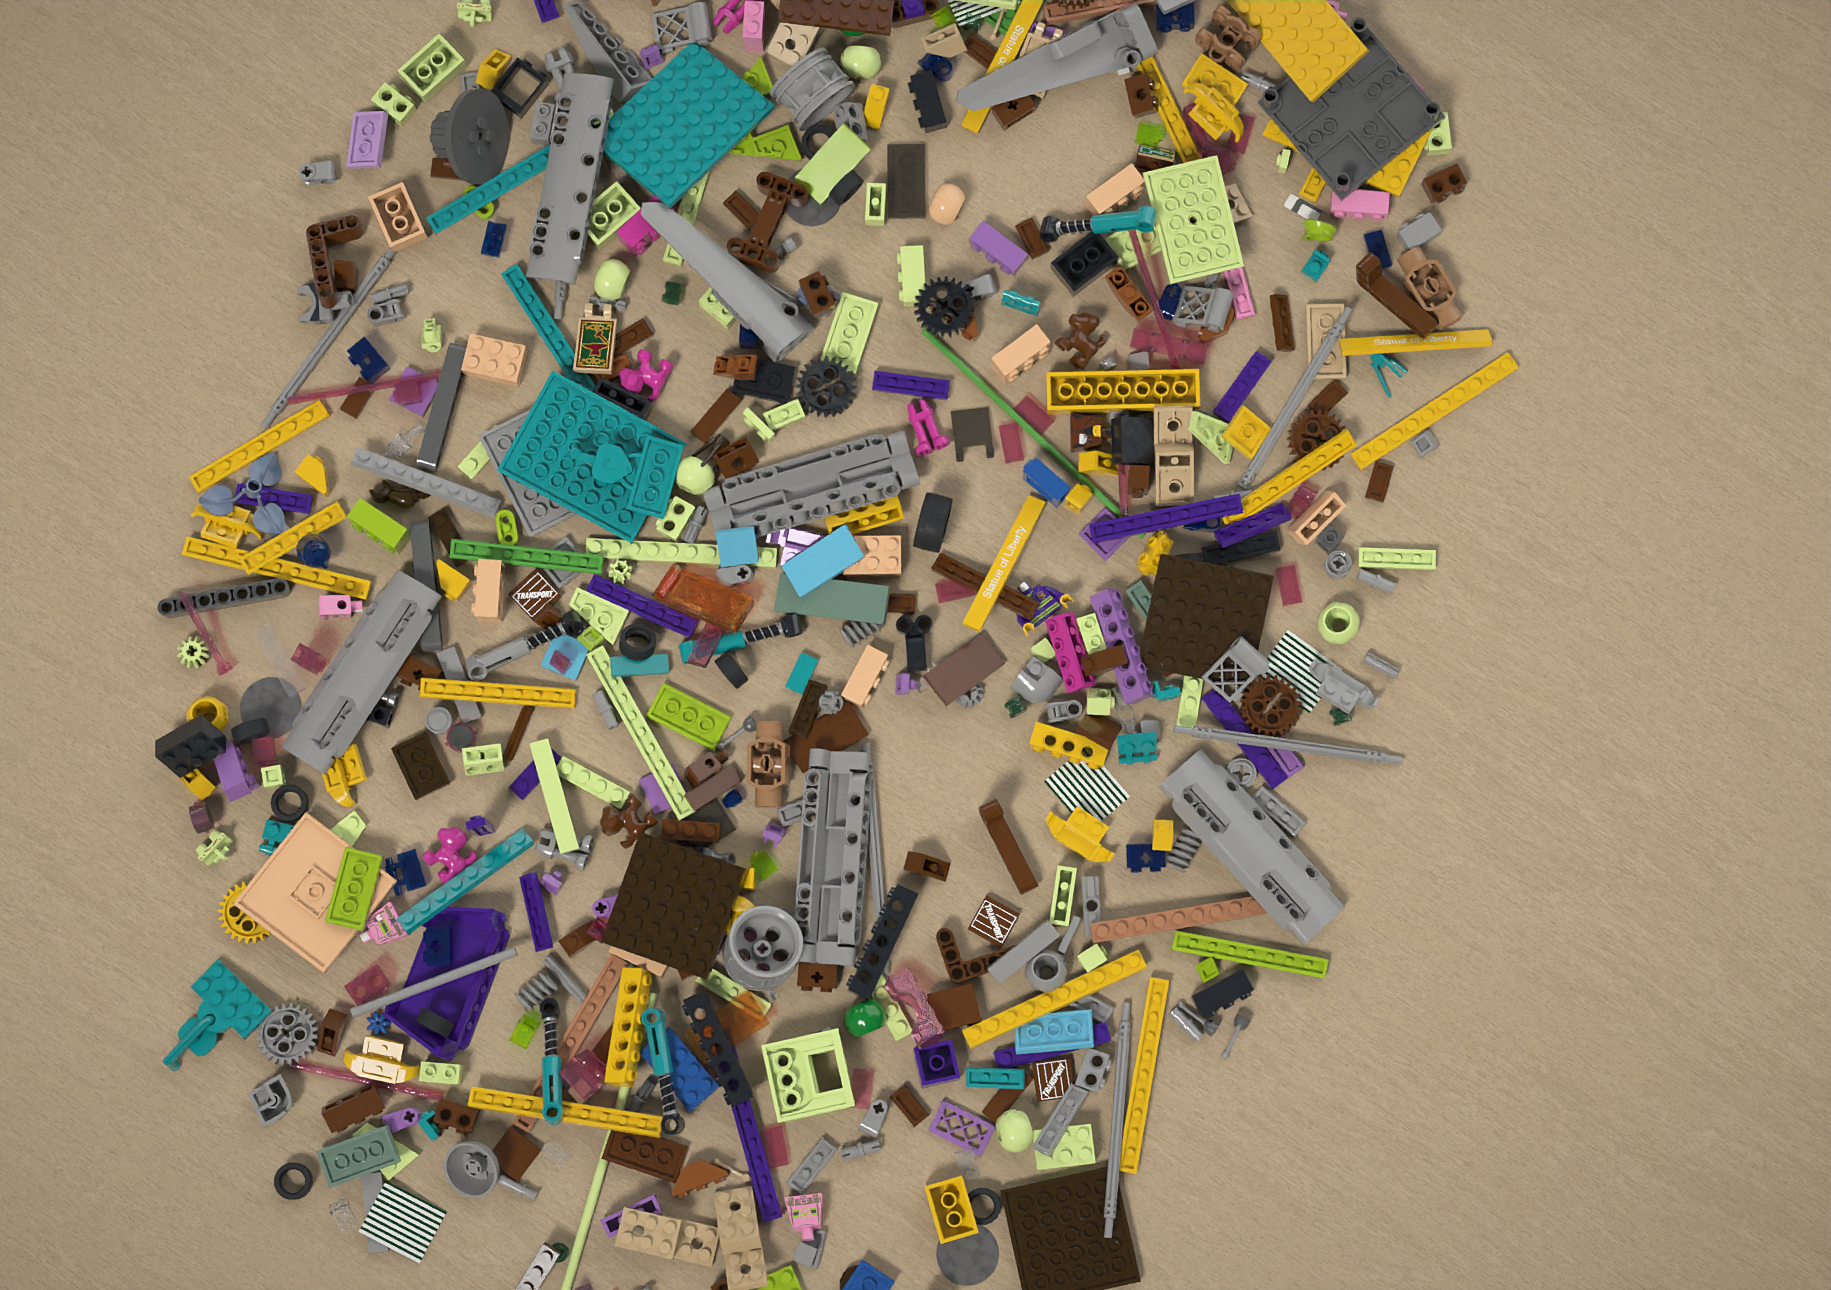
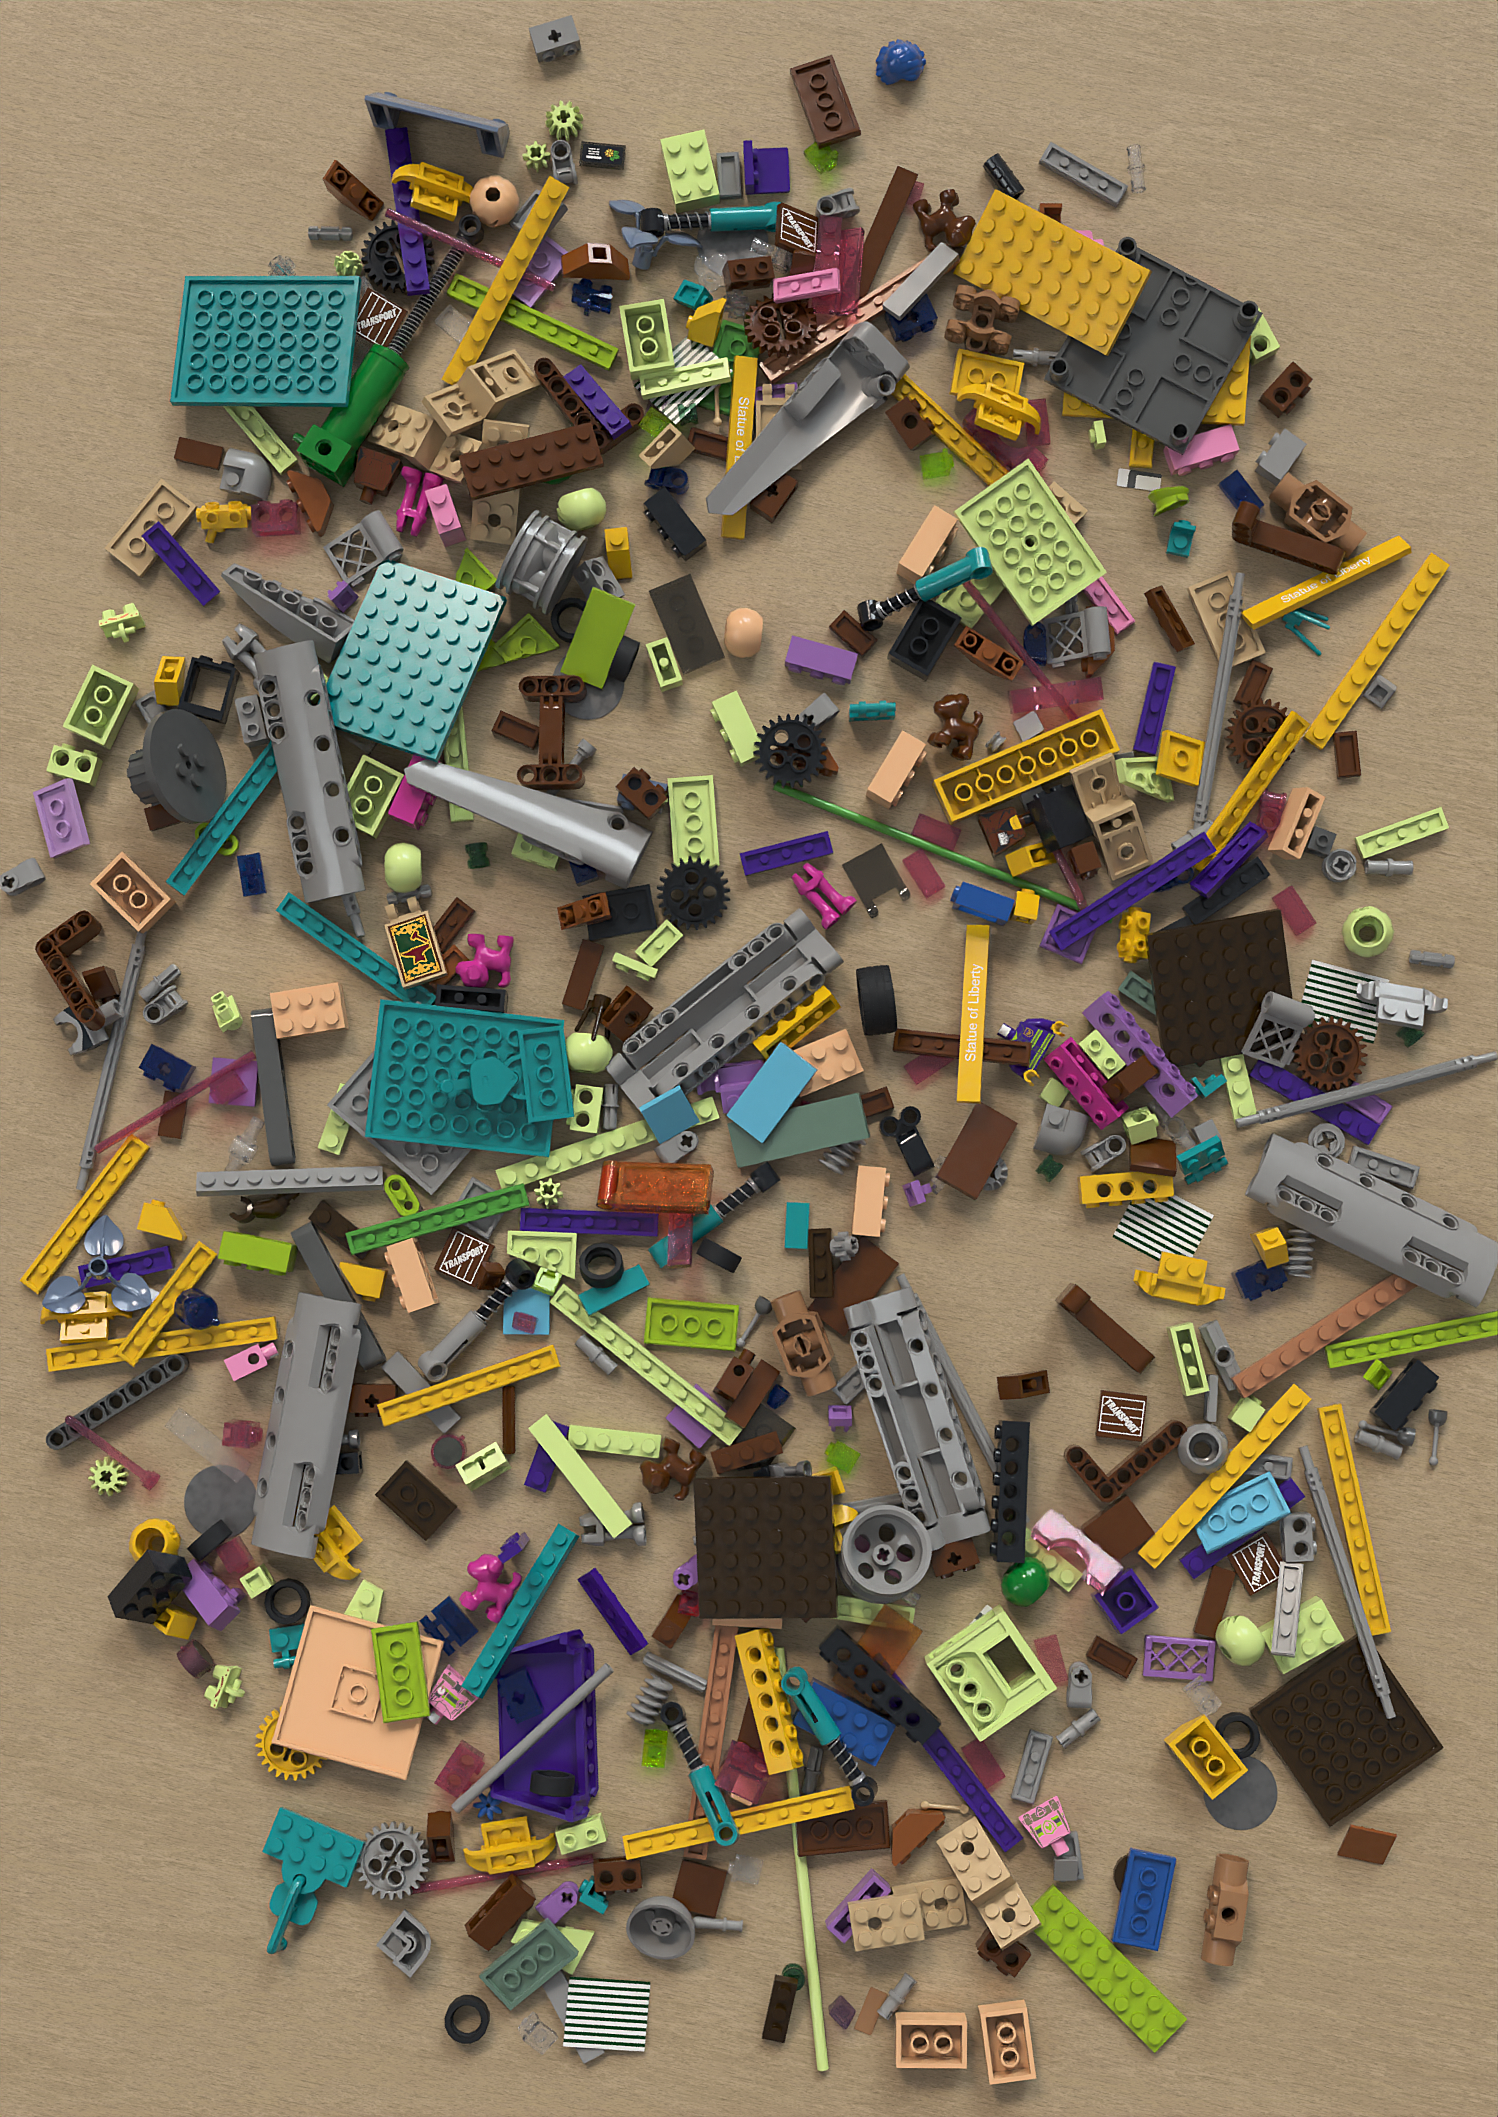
camera: 25 degrees left, 5 degrees up
(438, 720) = (415, 1441): light grey wheel -> none
(552, 883) = (616, 1572): medium lavender tile -> none
(995, 1078) = (1194, 1589): teal tile -> none
(1023, 951) = (1171, 1439): light grey tile -> none
(1153, 158) = (953, 490): panel -> none

